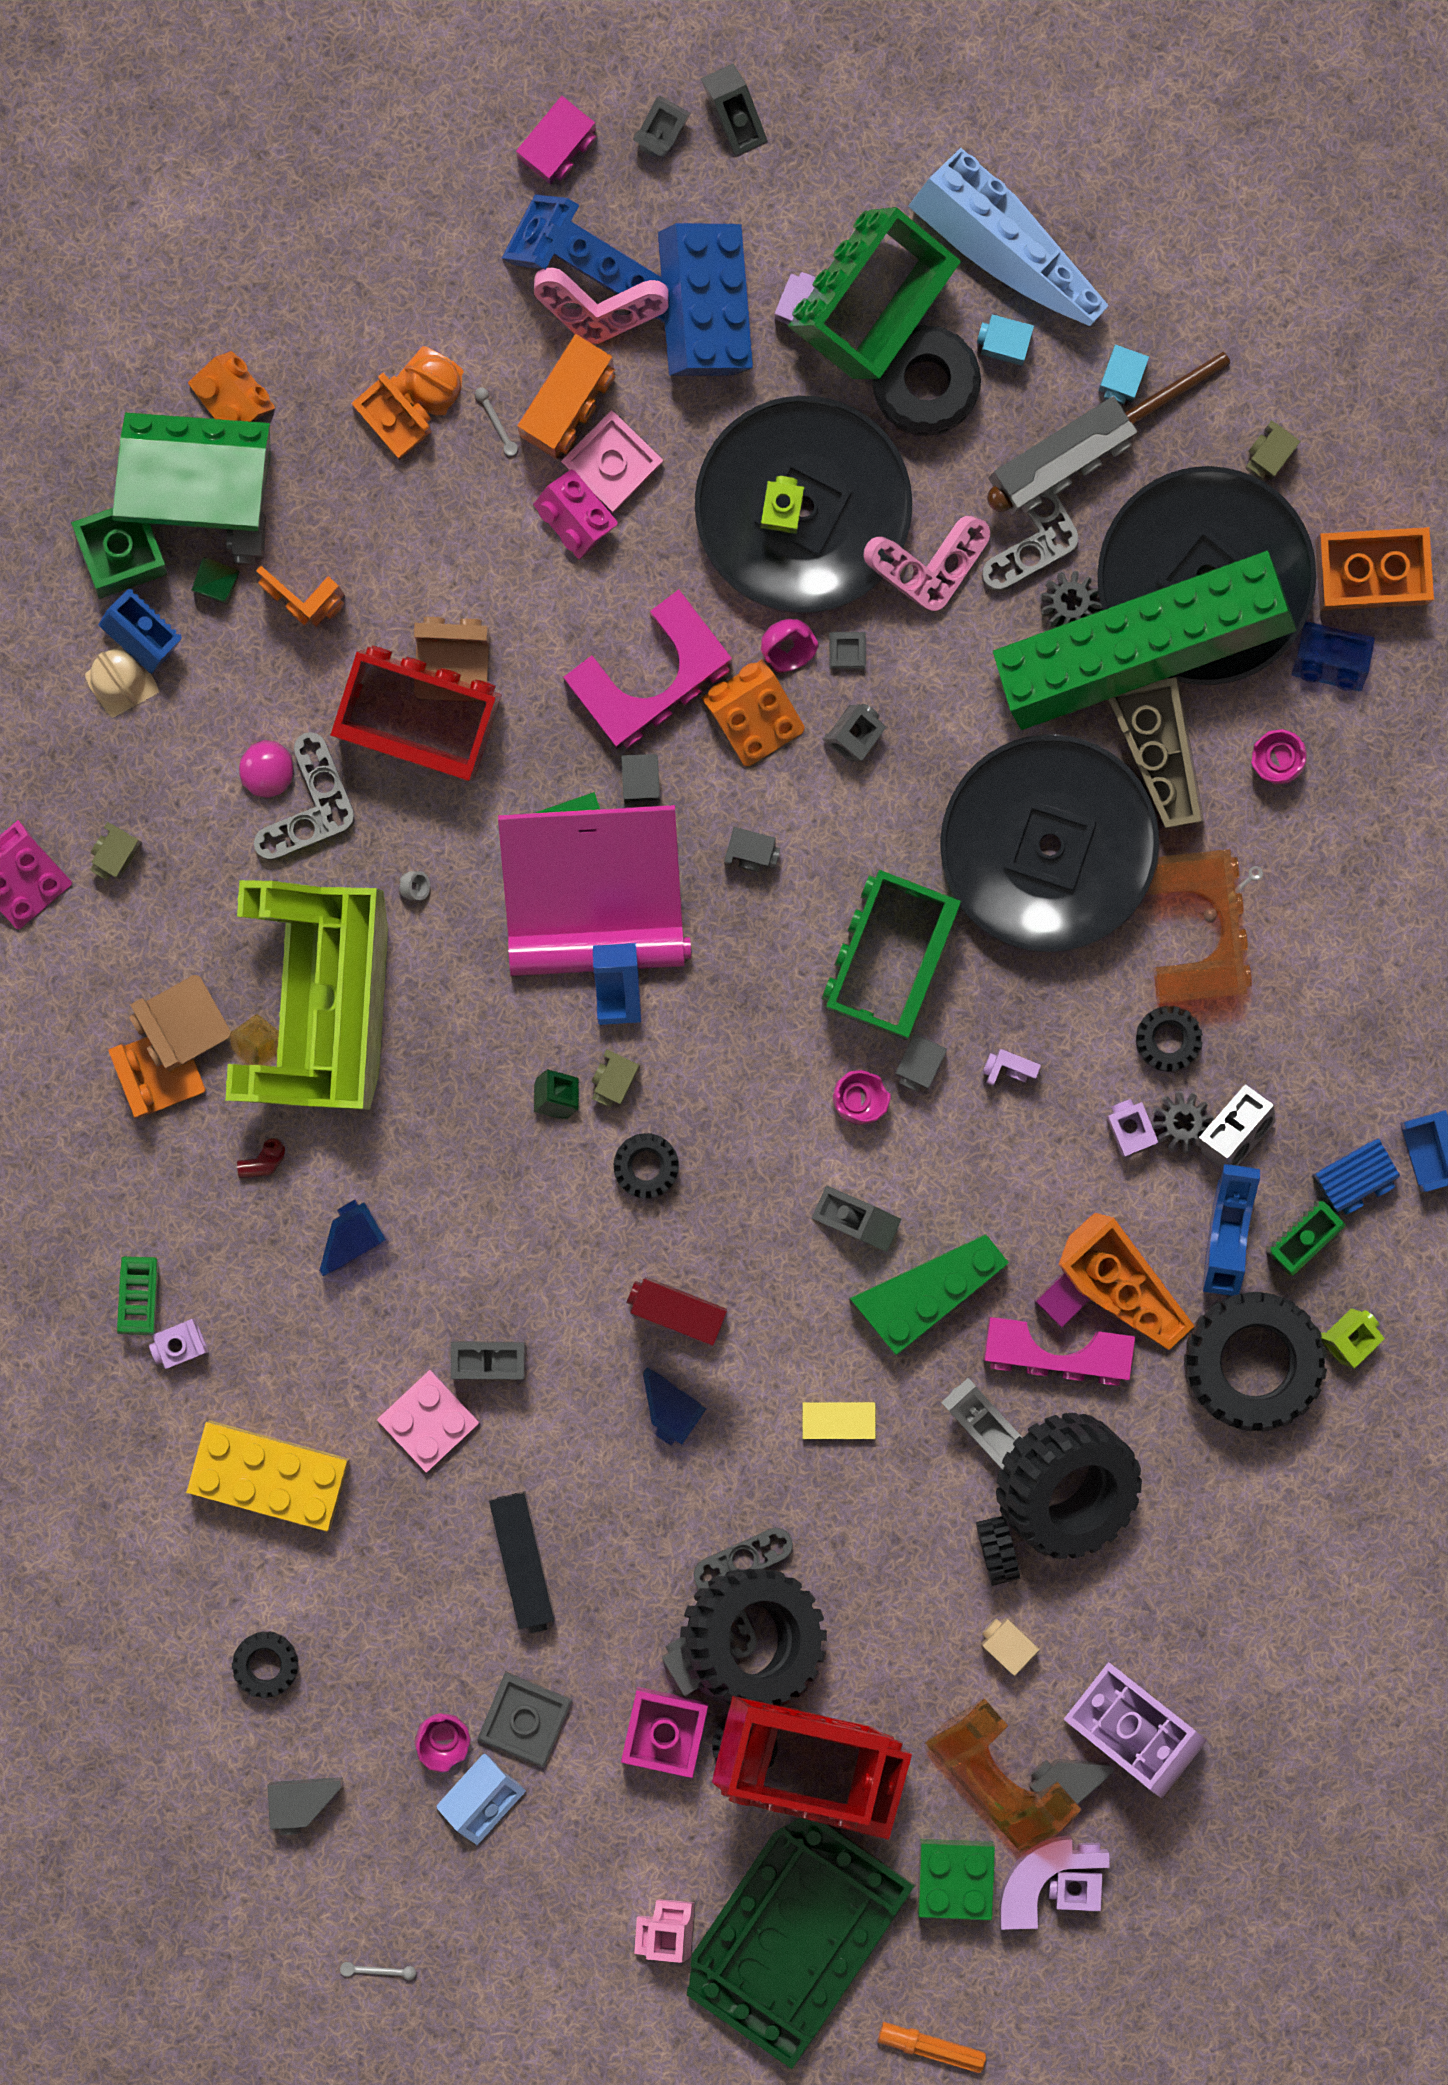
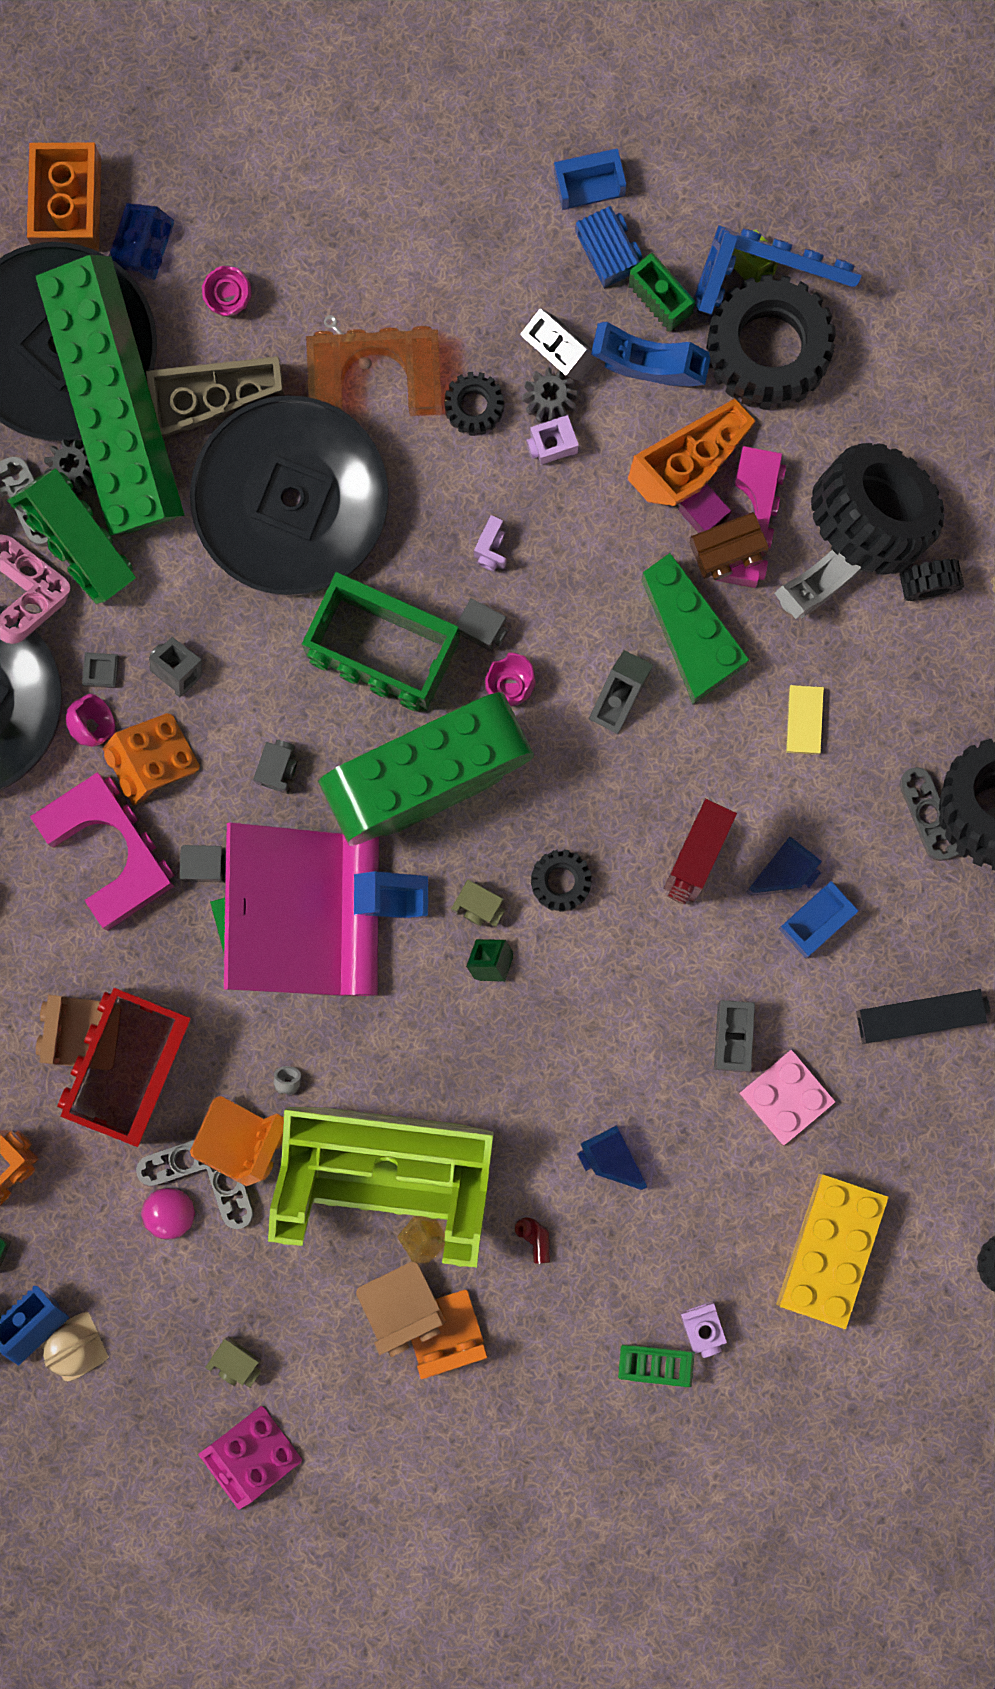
camera: 80 degrees left, 5 degrees down
(345, 839) = (238, 1141): none -> orange bracket
(620, 1444) = (818, 919): none -> blue panel
(749, 1013) = (426, 770): none -> green brick
(990, 611) = (74, 535): none -> green wedge
(1018, 1326) = (729, 546): none -> reddish brown brick
(1352, 1364) = (721, 262): none -> blue bracket

